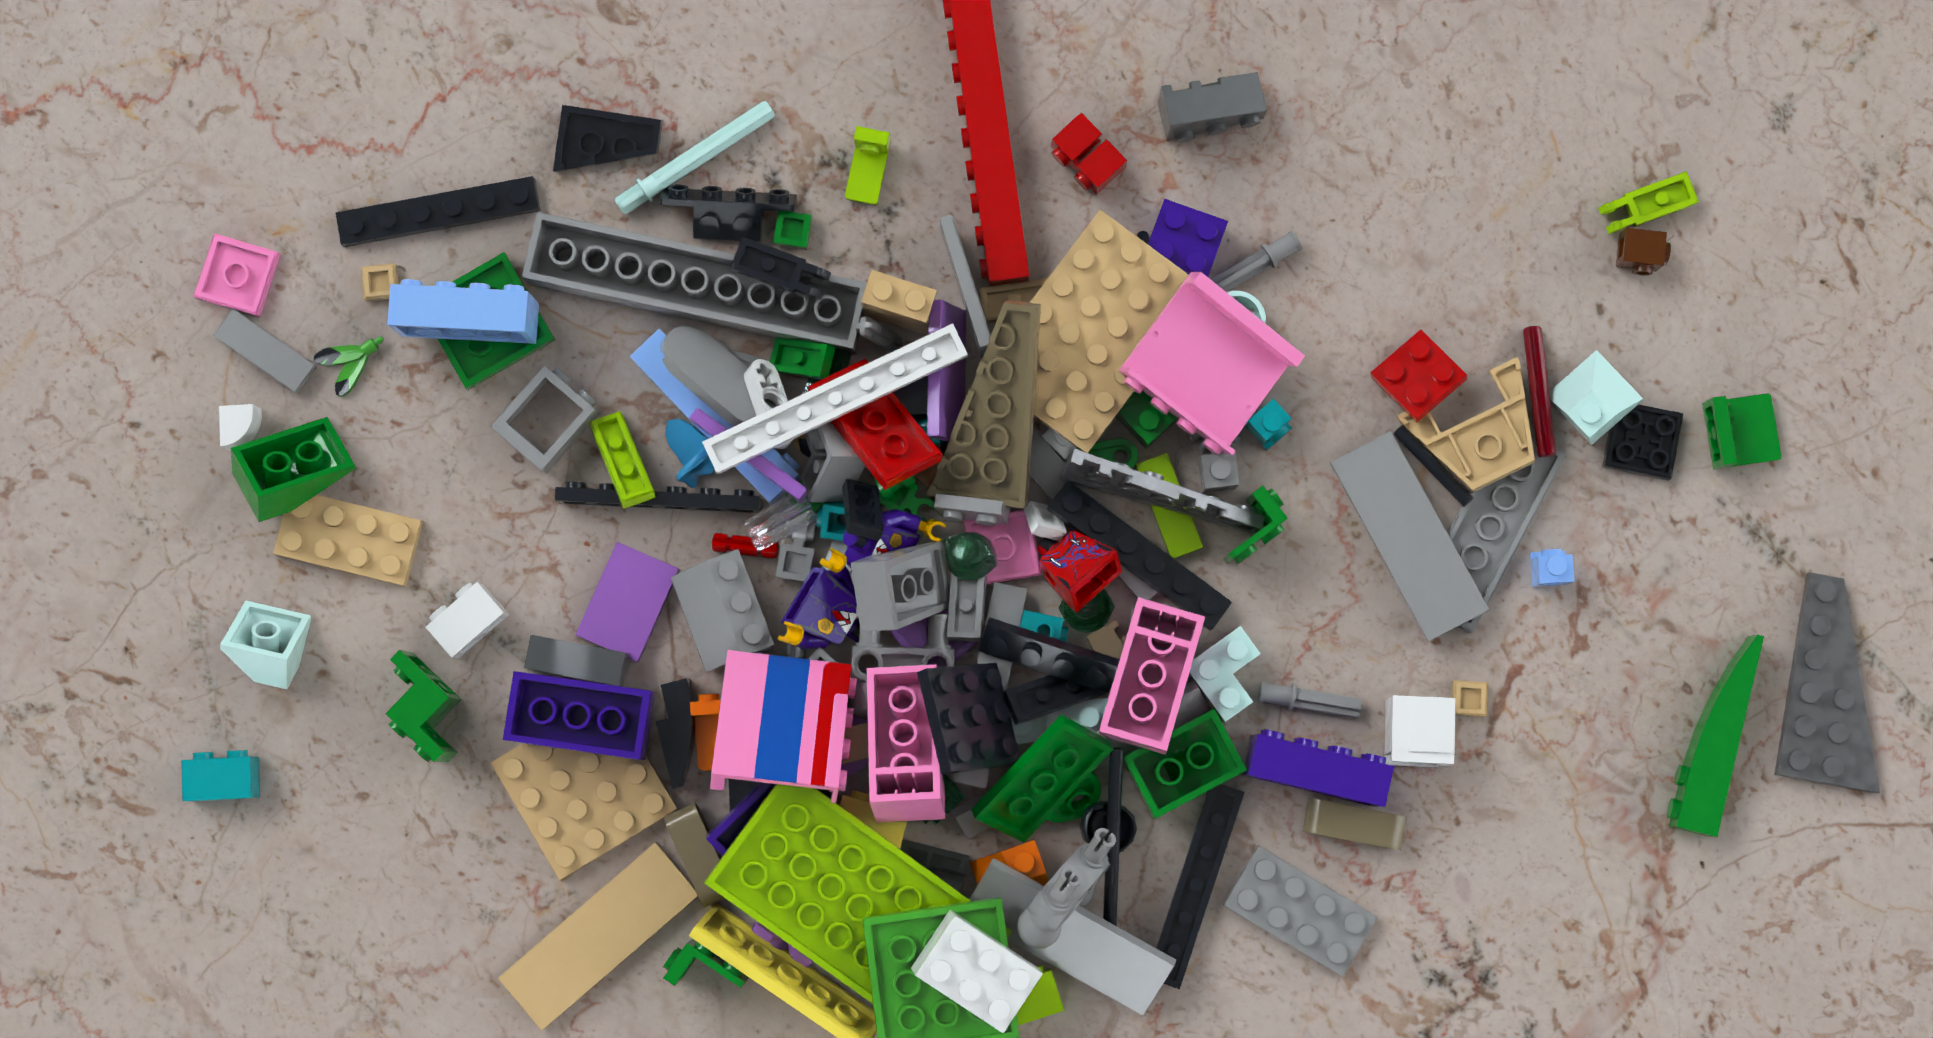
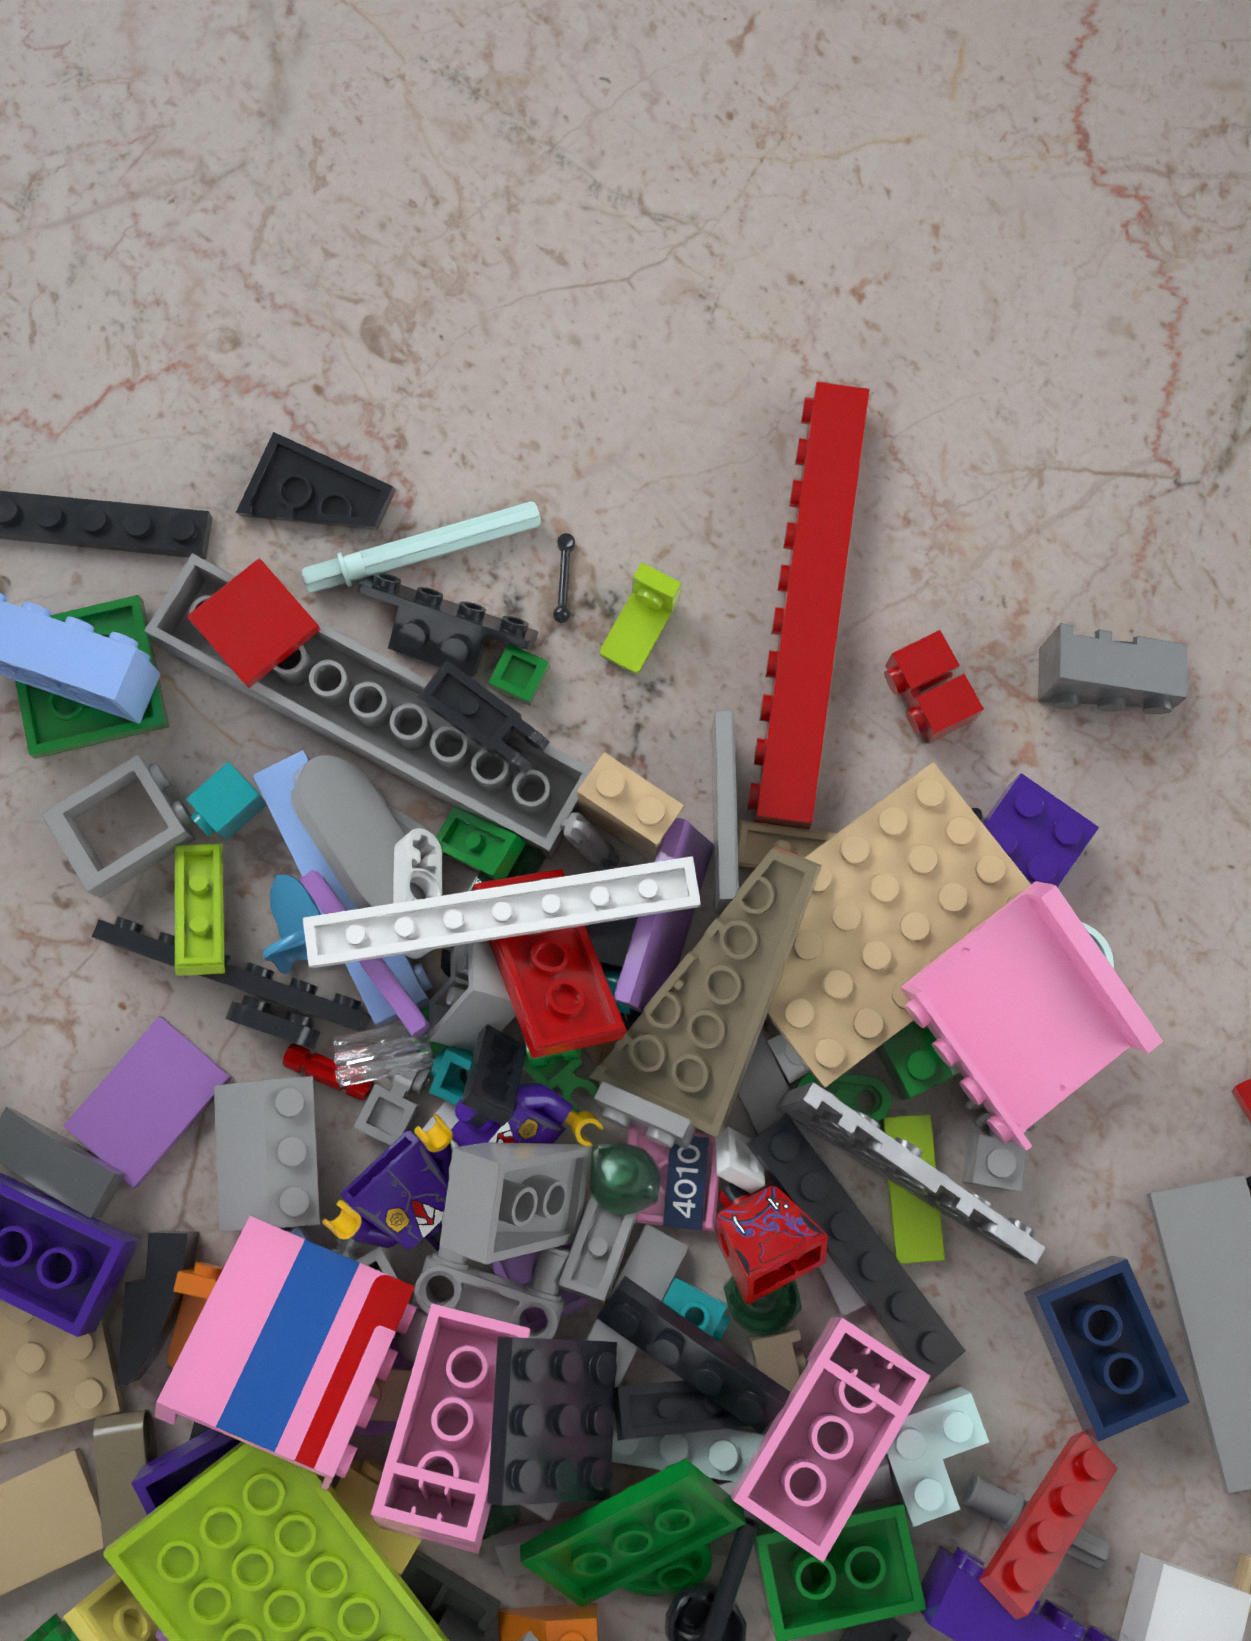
camera: 10 degrees right, 5 degrees down
(598, 249) = (254, 622): none -> red tile
(615, 381) = (225, 802): none -> teal brick
(684, 522) = (255, 1015): none -> black plate
(797, 125) = (566, 544): none -> black hinge
(1013, 548) = (686, 1184): none -> dark blue sticker
(1259, 261) = (1127, 891): light grey axle -> none
(1267, 505) = (1053, 1231): green bracket -> none
(1269, 424) = (1082, 1117): teal brick -> none
(1313, 693) = (1048, 1525): none -> red plate
(1324, 571) = (1106, 1347): none -> dark blue brick

